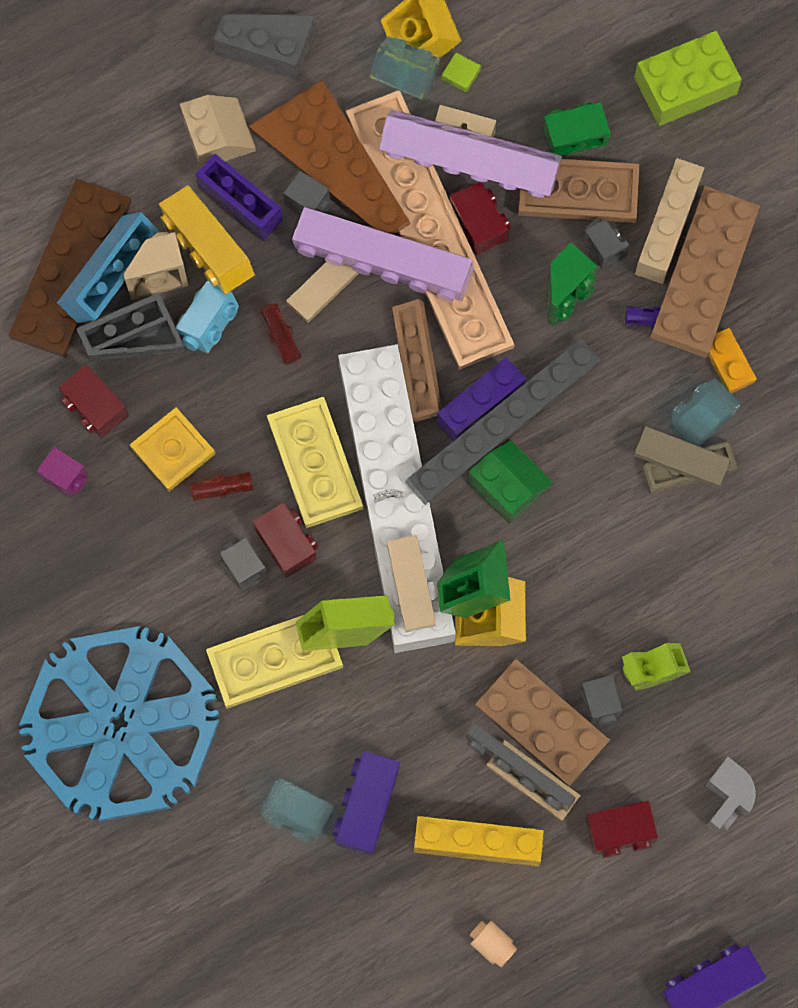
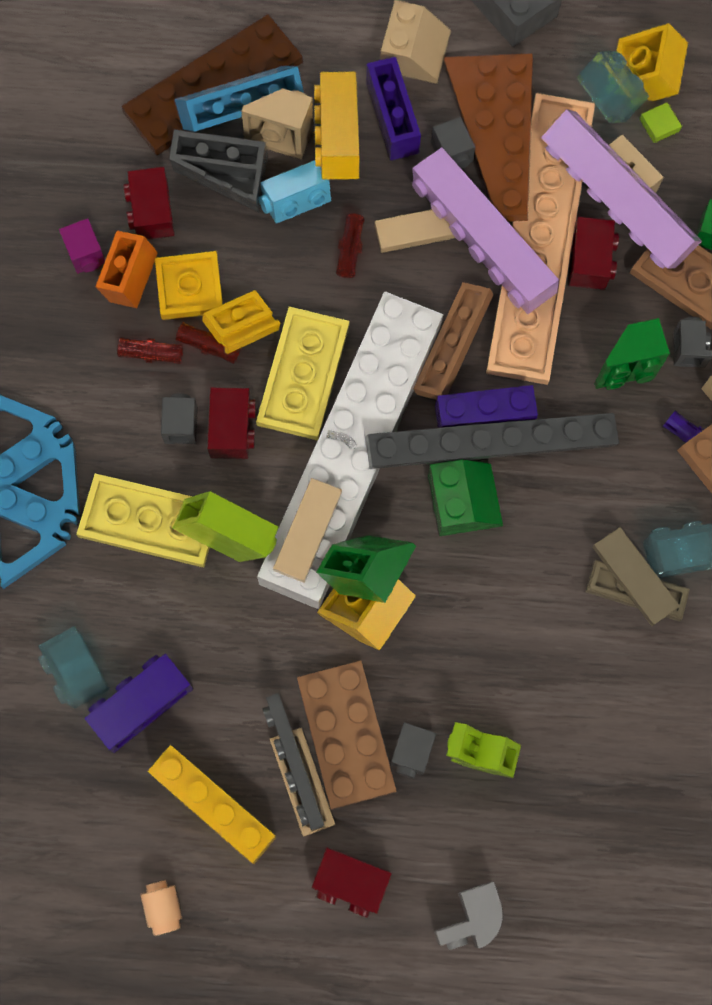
camera: 30 degrees right, 0 degrees up
(115, 468) = (126, 269): none -> orange brick
(178, 522) = (150, 350): none -> clear red pin
(237, 452) = (241, 321): none -> yellow plate

